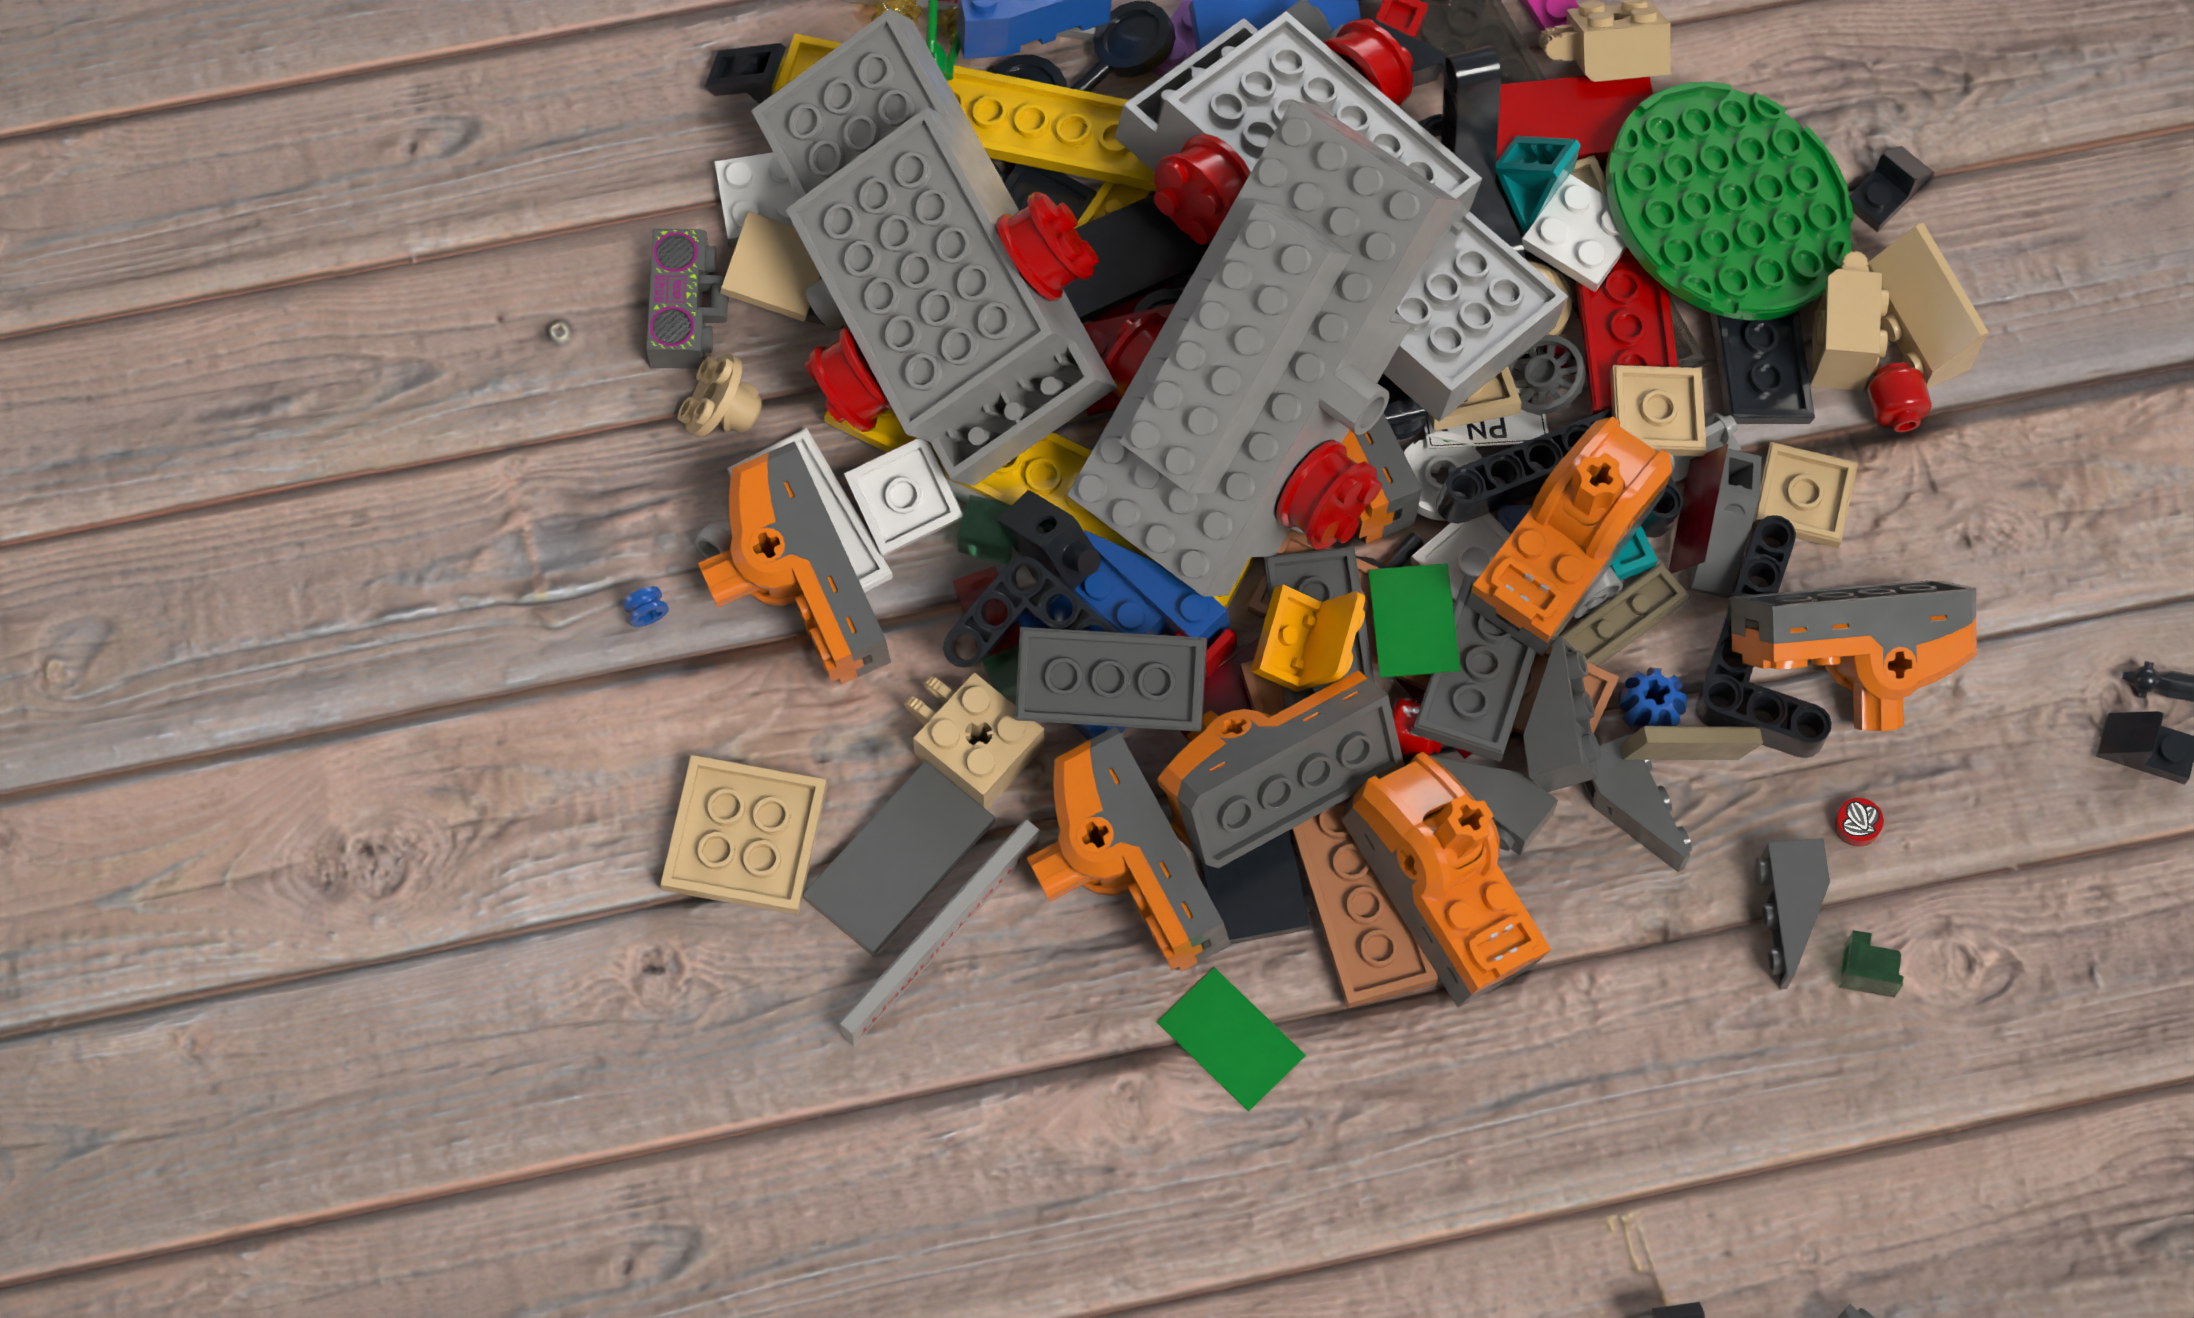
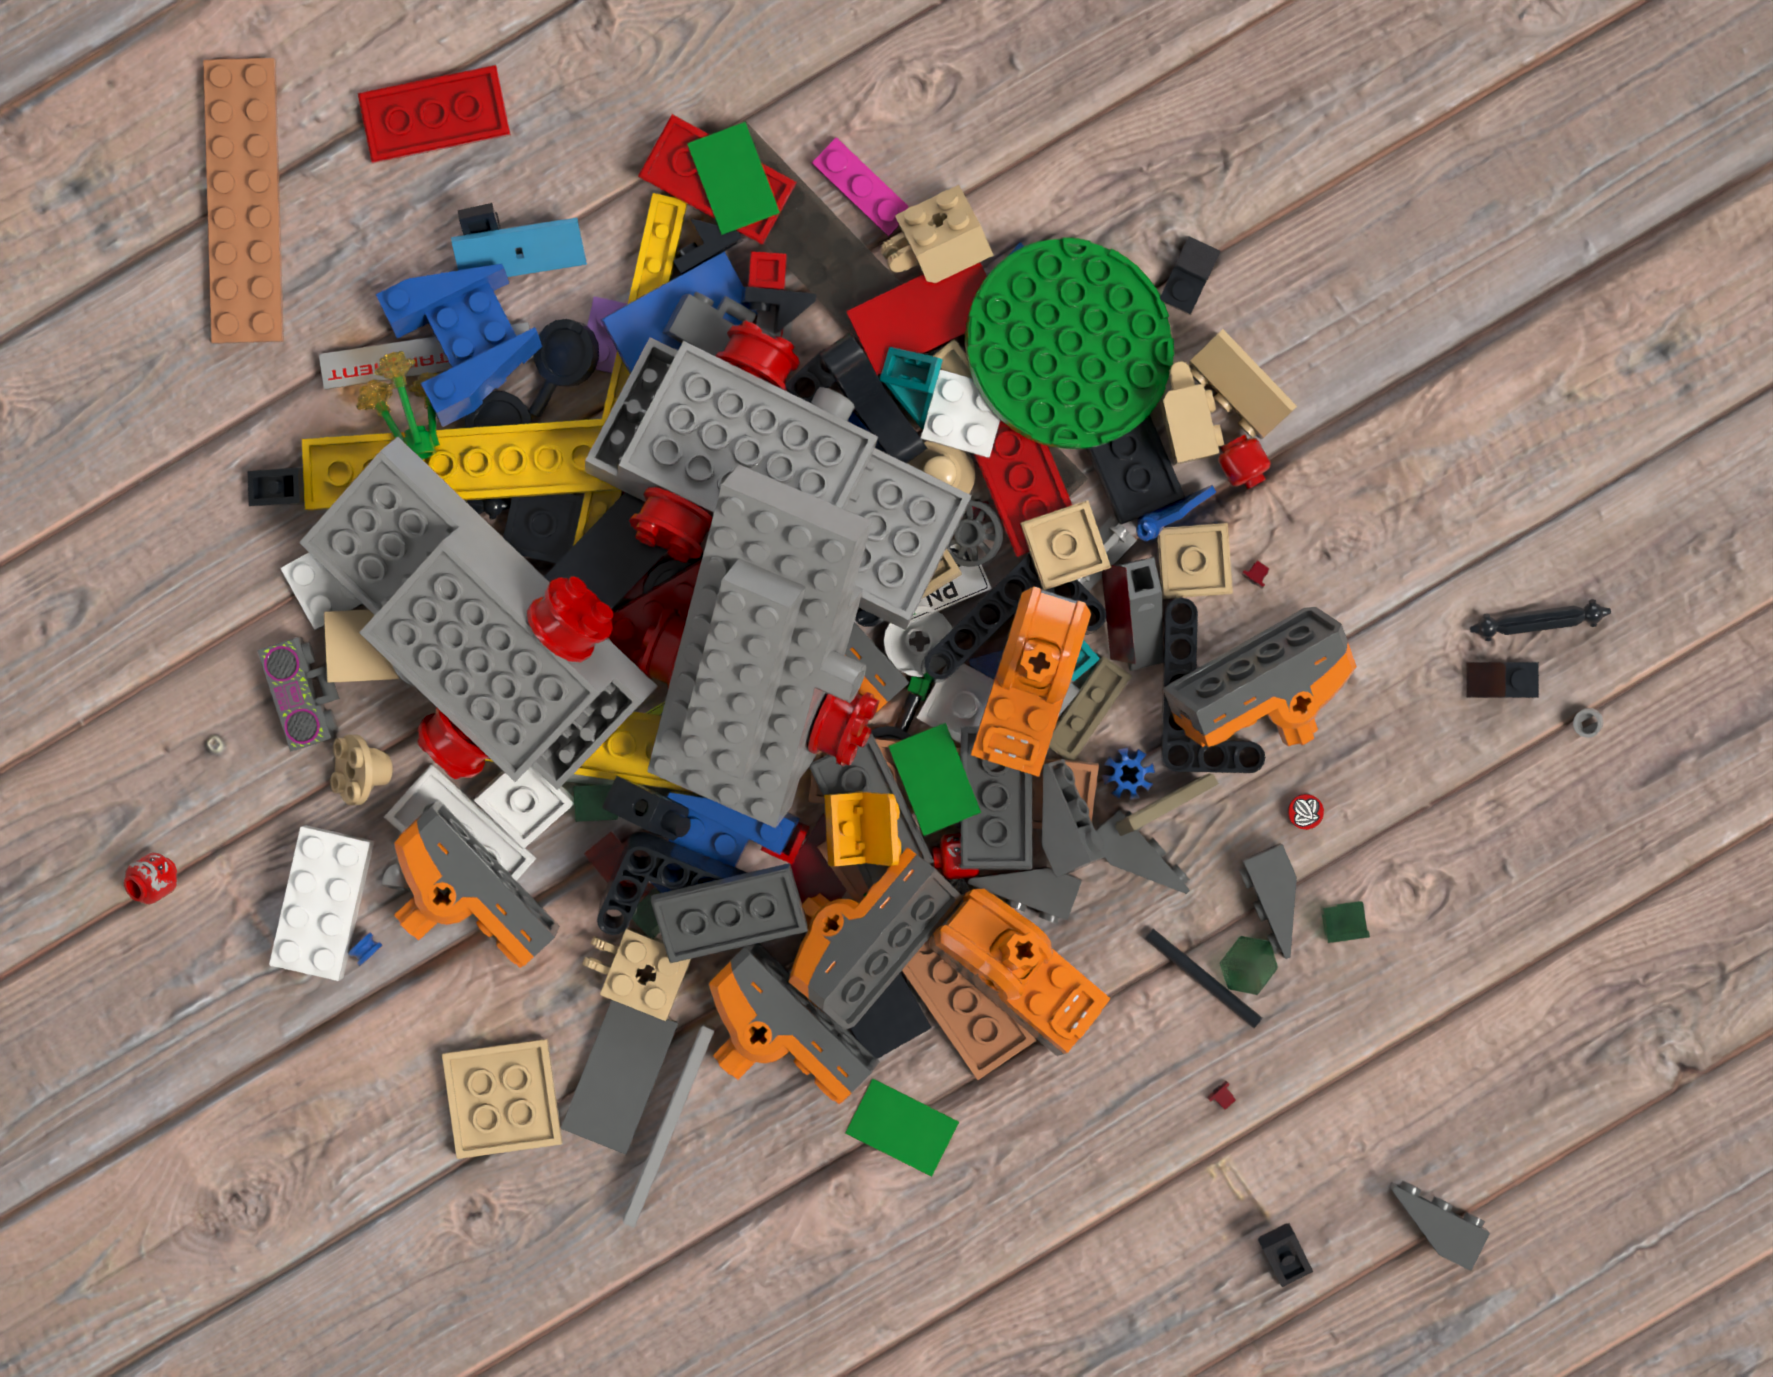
camera: 15 degrees left, 20 degrees up
(422, 441) = (150, 878): none -> red head
(614, 534) = (321, 903): none -> white brick
(1427, 527) = (920, 686): none -> green piece
(1653, 1131) = (1222, 1095): none -> dark red piece
(1672, 979) = (1203, 978): none -> black bar
(1735, 978) = (1248, 965): none -> clear green panel
(1774, 426) = (1152, 523): none -> blue arm
(1875, 532) = (1256, 574): none -> dark red piece

